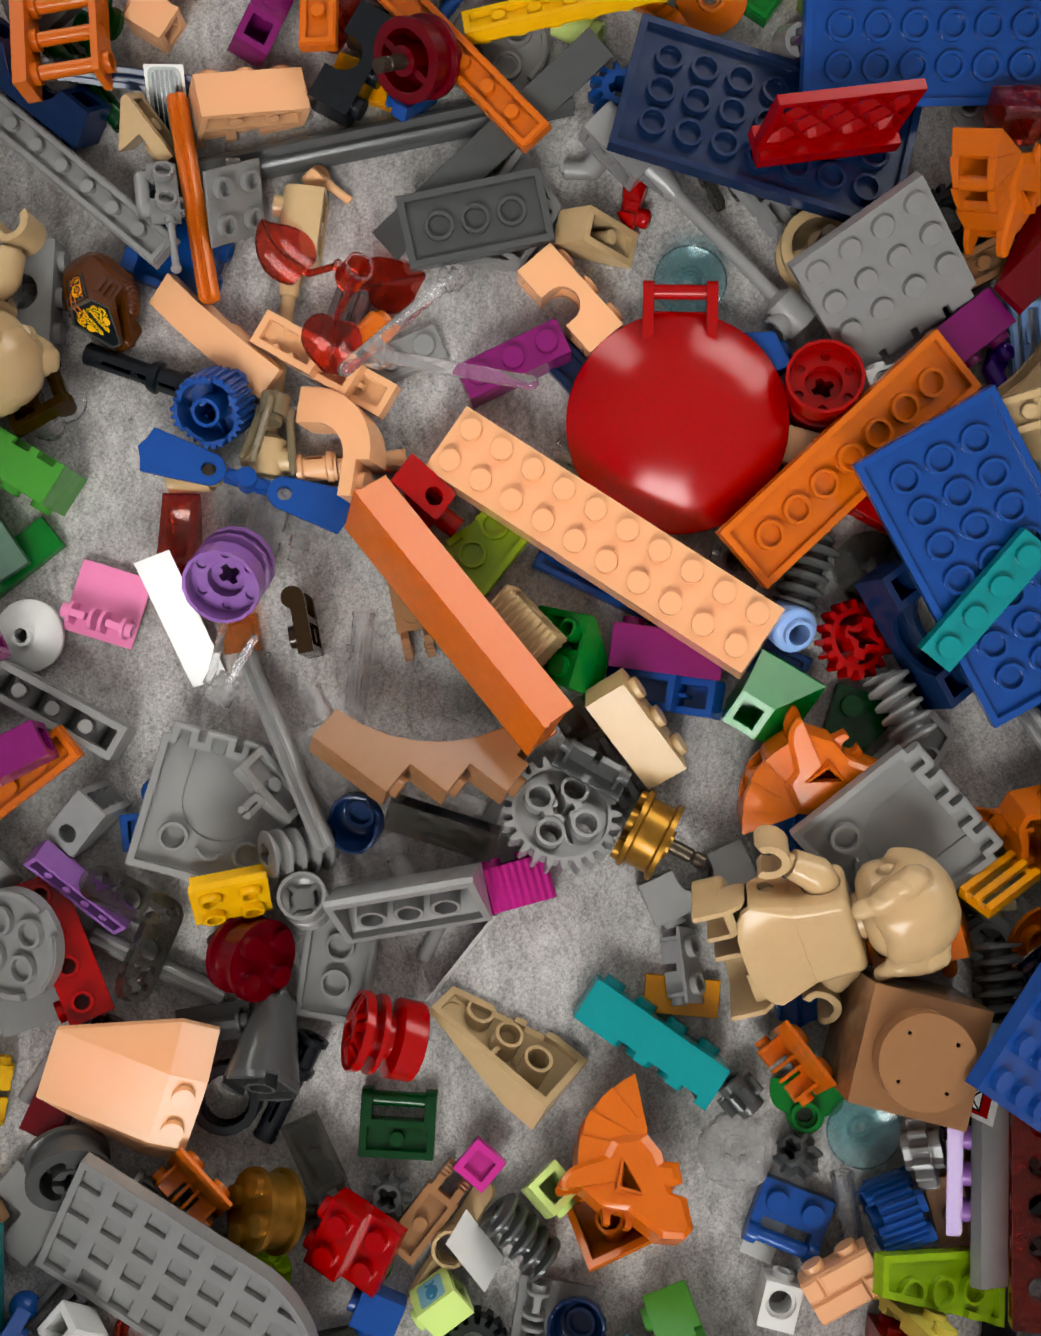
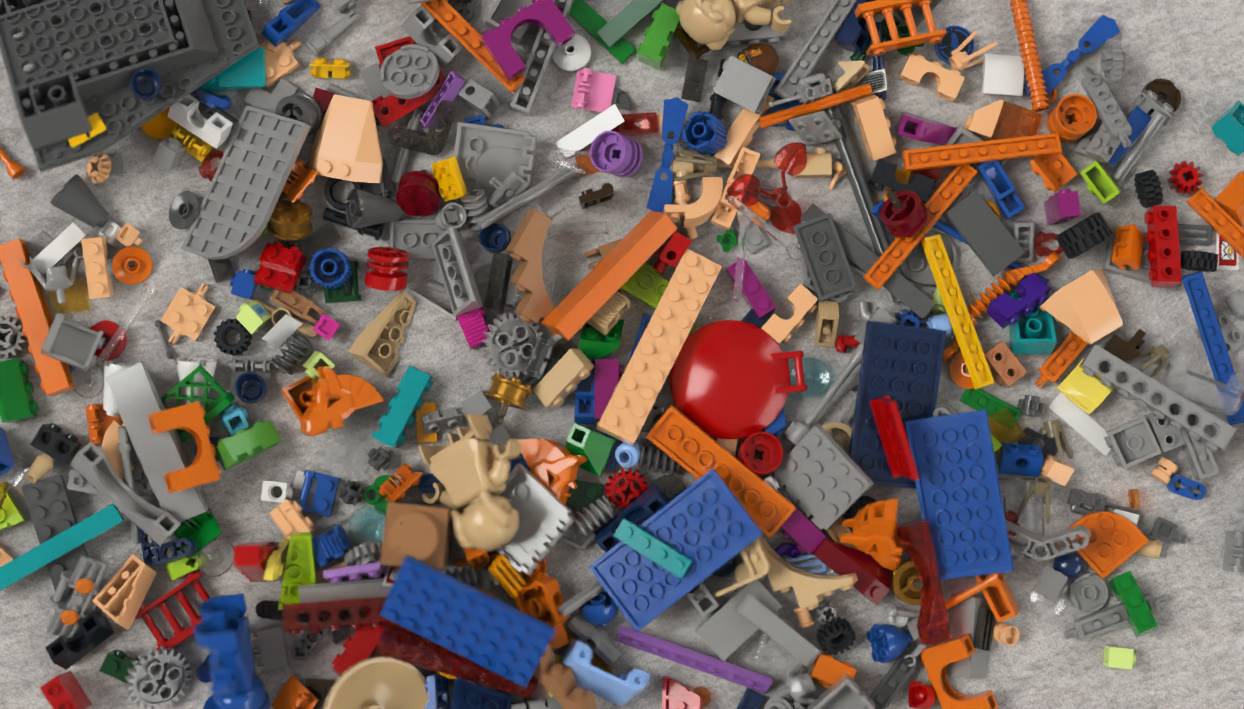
camera: 75 degrees right, 0 degrees up
(113, 415) = (694, 80): none -> clear smoke slope
(130, 553) = (621, 99): none -> dark grey tile
(131, 318) = (743, 84): none -> light grey panel
(361, 1165) = (331, 257): none -> blue brick
(423, 386) = (722, 240): none -> green plate
(621, 33) = (940, 322): none -> light blue head

